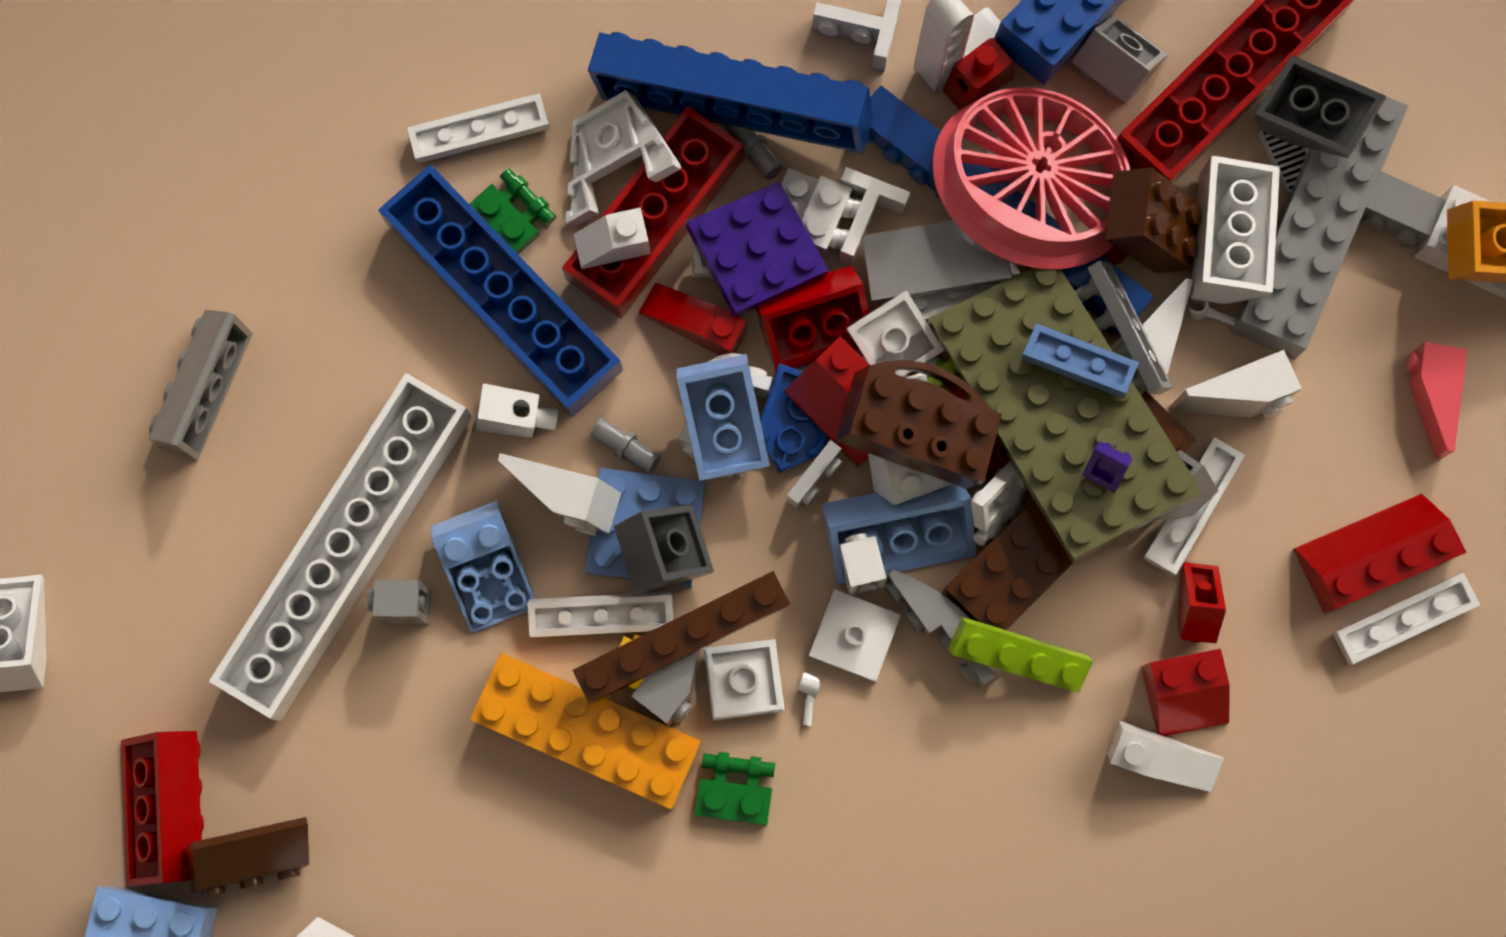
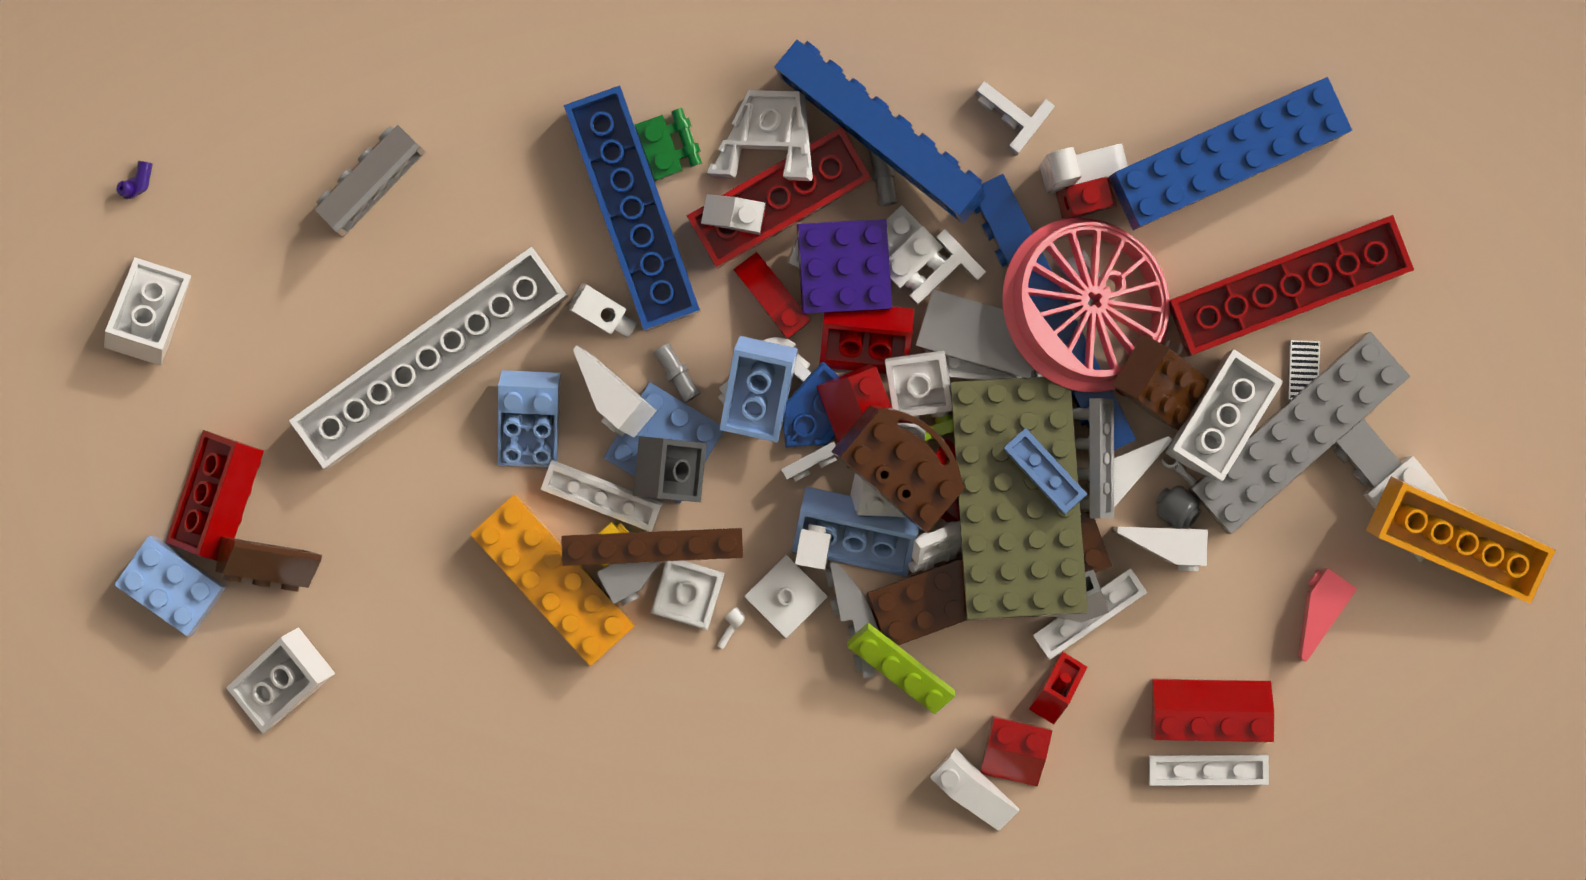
camera: 25 degrees right, 10 degrees up
(400, 602) = (454, 422): light grey brick -> none
(478, 128) = (671, 63): white plate -> none
(733, 800) = (641, 679): green plate -> none
(1107, 466) = (1023, 562): dark purple tile -> none
(1118, 58) = (1207, 231): light grey slope -> none
(1231, 349) = (1178, 507): none -> dark grey head
(1317, 109) = (1333, 350): dark grey slope -> none

